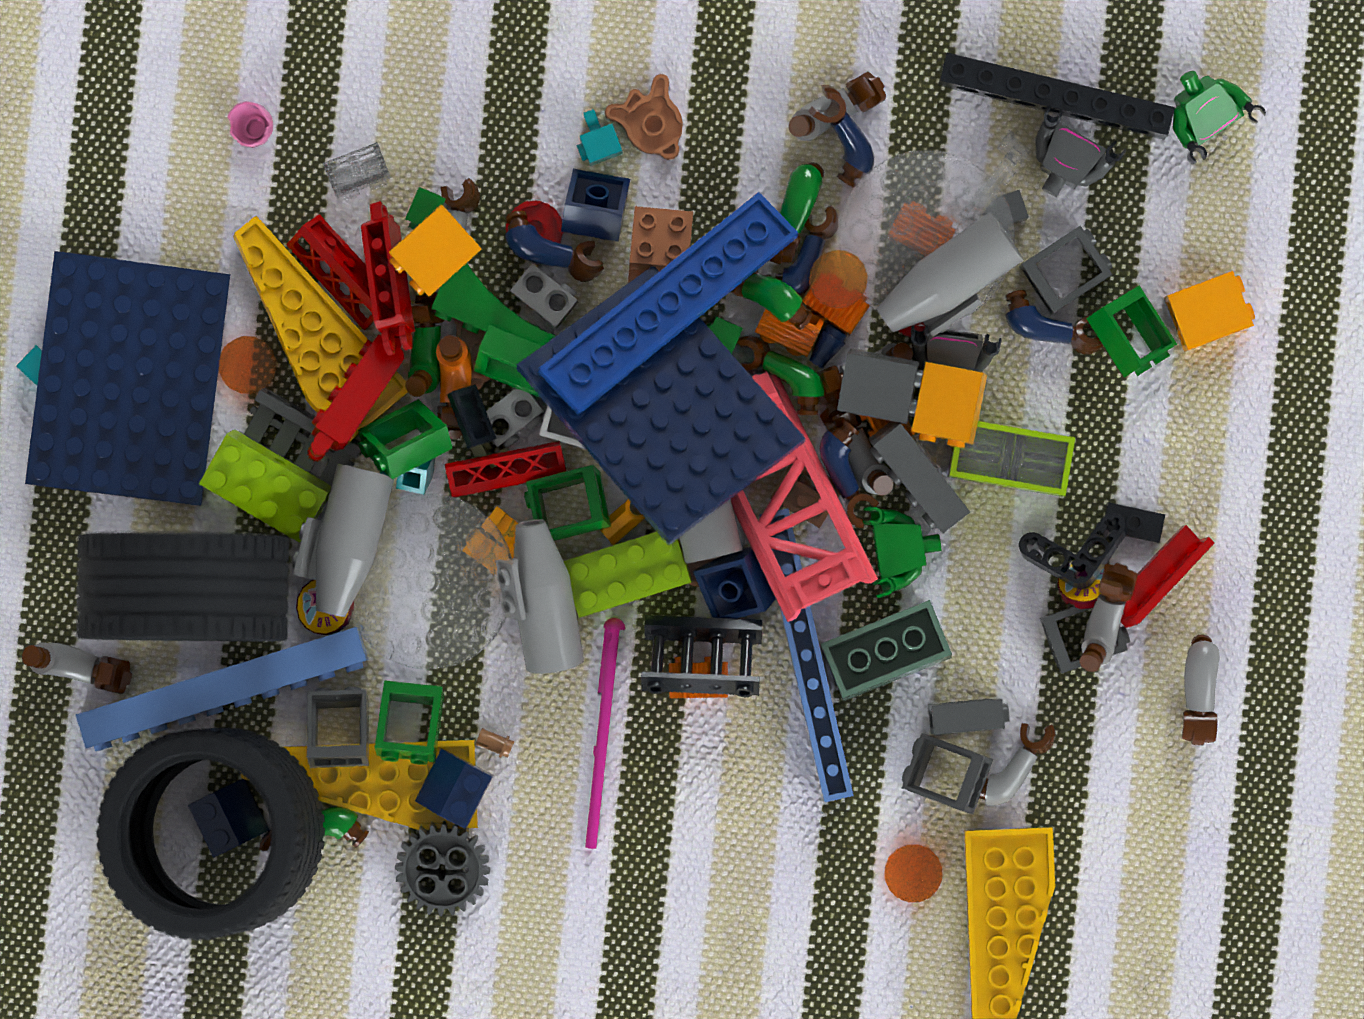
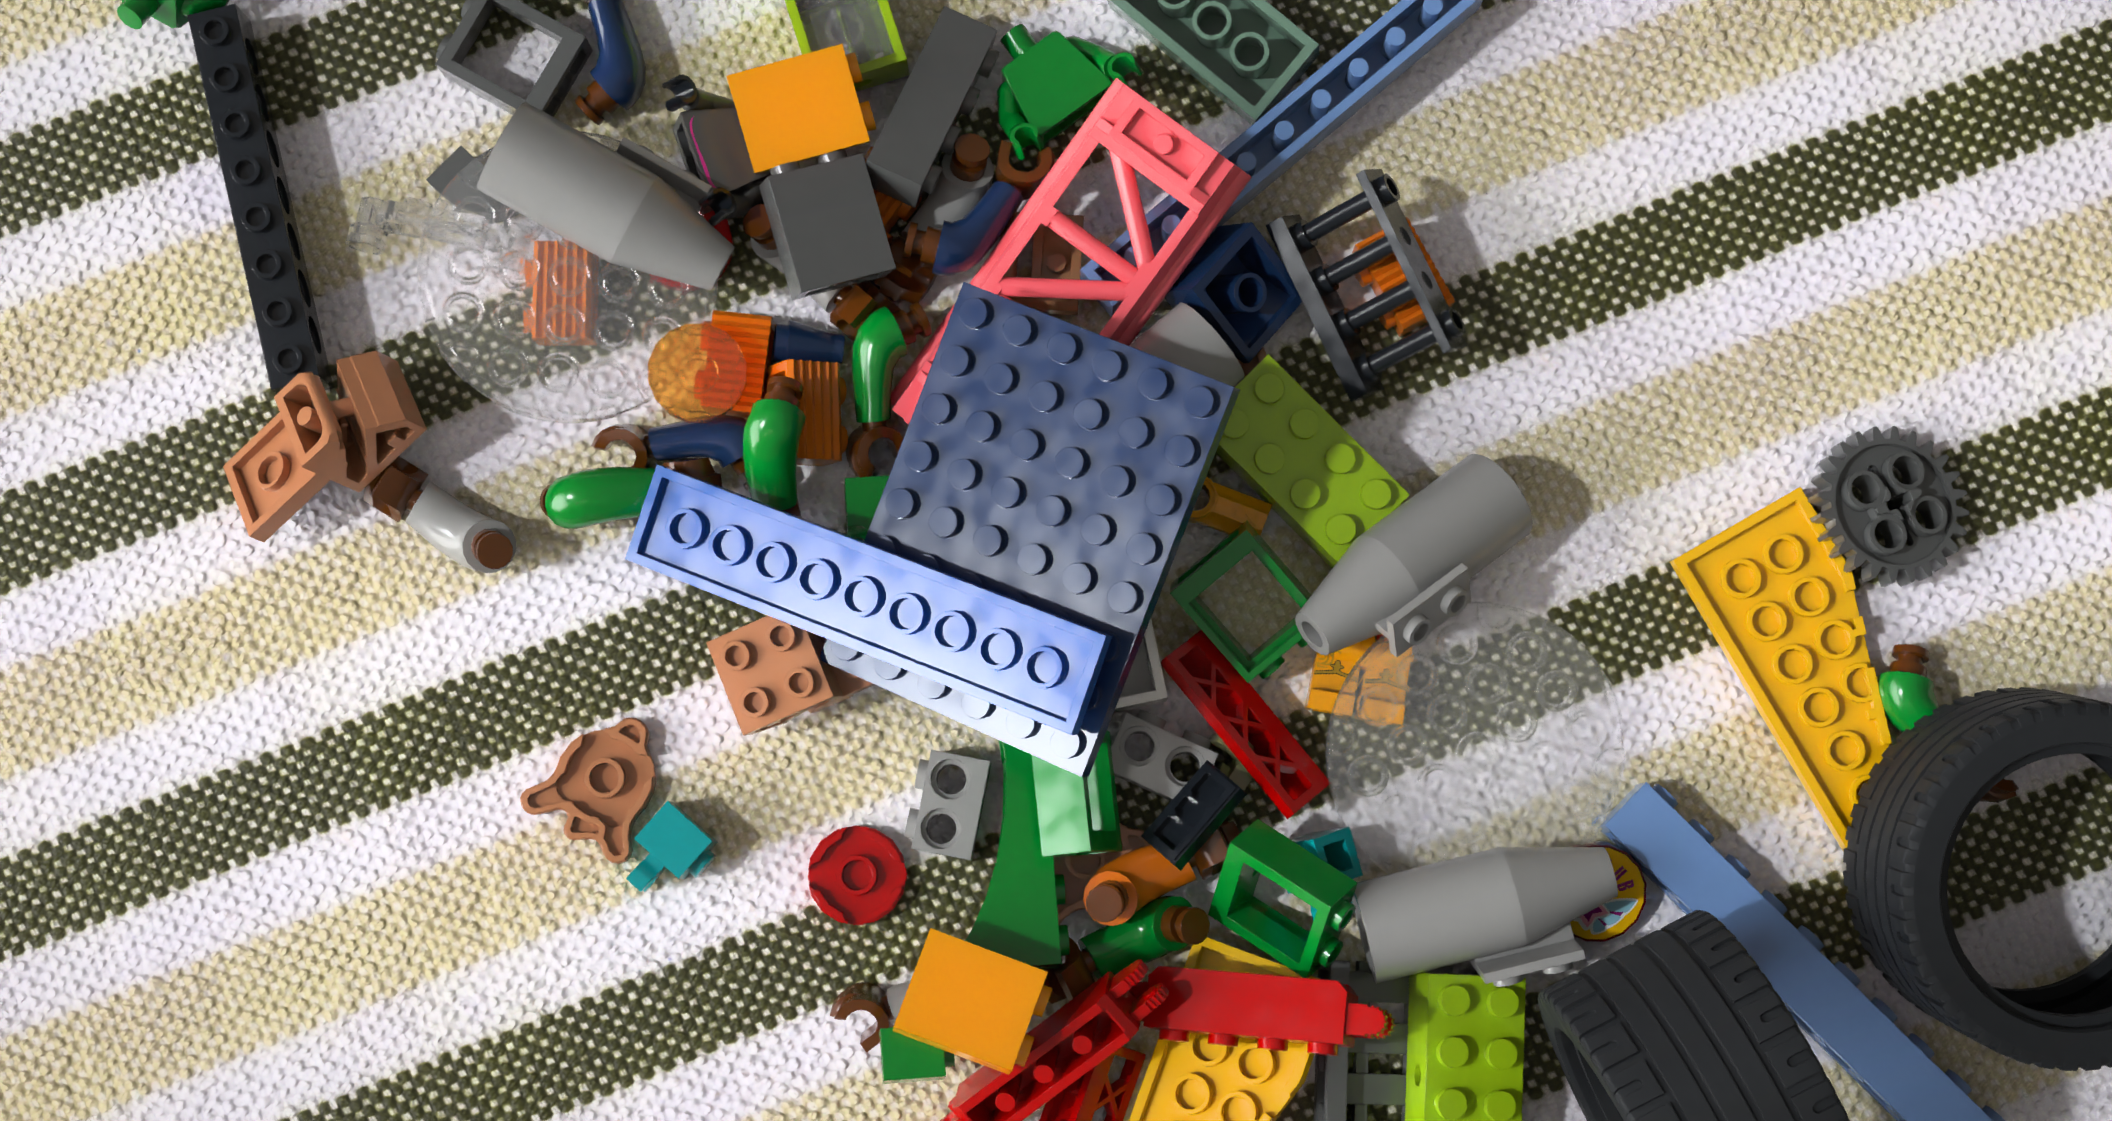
camera: 115 degrees left, 5 degrees down
(228, 817) = (2001, 870): dark blue slope -> none
(337, 755) = (1816, 748): dark grey window -> none
(416, 694) = (1654, 685): green window -> none
(454, 788) = (1765, 547): dark blue slope -> none
(494, 743) = (1659, 528): medium nougat pin -> none
(531, 246) = (886, 860): piece -> none
(595, 205) = (772, 800): dark blue slope -> none
(606, 685) = (1484, 409): dark pink bar -> none
(857, 149) = (481, 457): piece -> none
(904, 64) = (324, 440): none -> nougat piece
(1070, 156) = (340, 134): dark grey torso -> none

